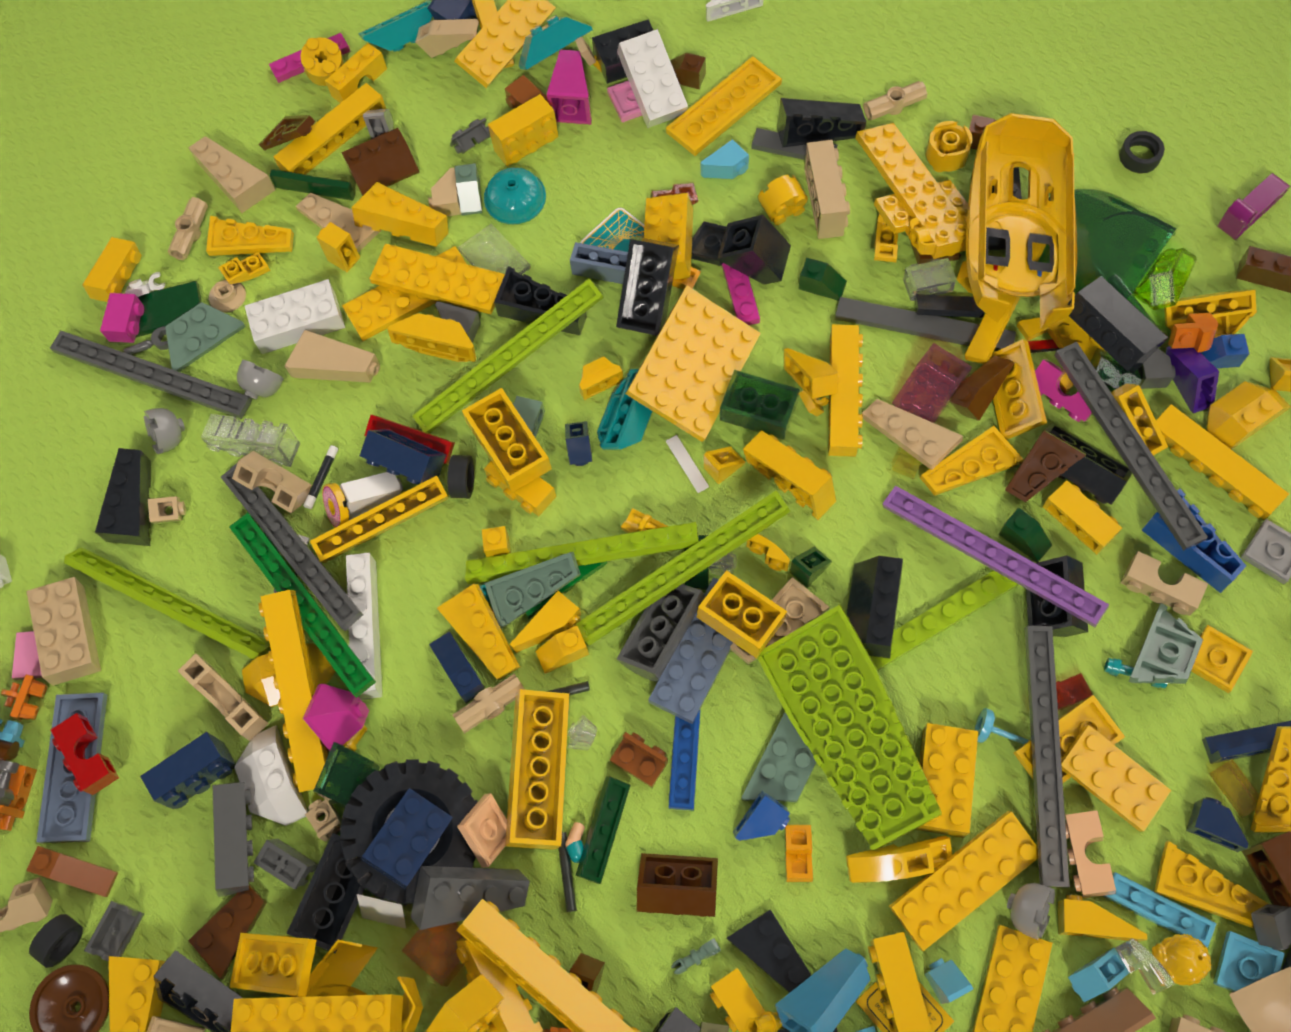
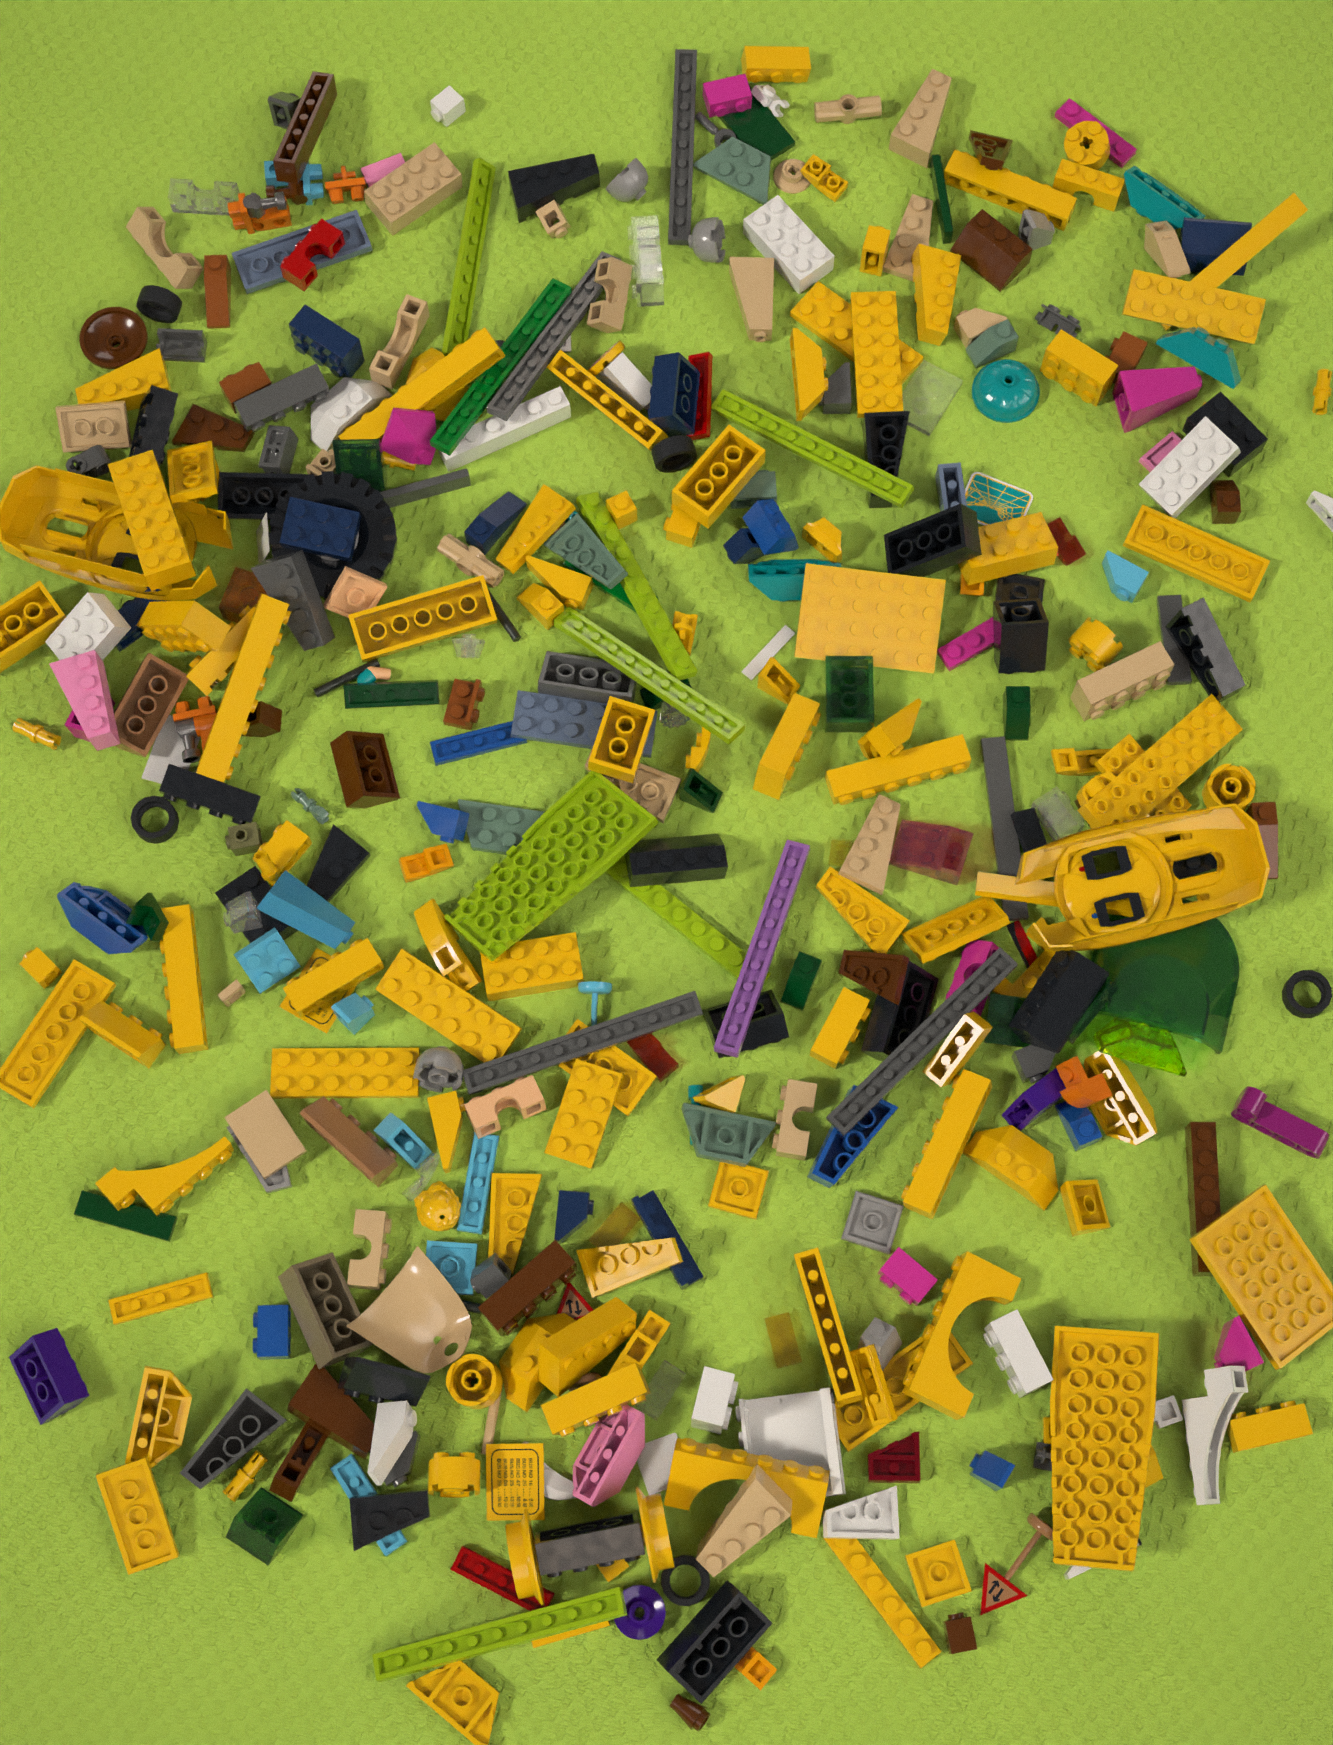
camera: 65 degrees right, 5 degrees up
(195, 874) = (244, 383): none -> dark orange brick
(234, 238) = (857, 160): yellow wing -> none
(320, 478) = (635, 336): black bar -> none
(393, 719) = (427, 488): none -> dark grey tile
(572, 415) = (770, 528): none -> blue slope
(585, 51) = (1206, 391): tan tile -> none
(895, 100) = (1282, 732): tan piece -> none
(980, 387) = (941, 893): reddish brown slope -> none
(1124, 639) = (723, 1095): none -> yellow slope

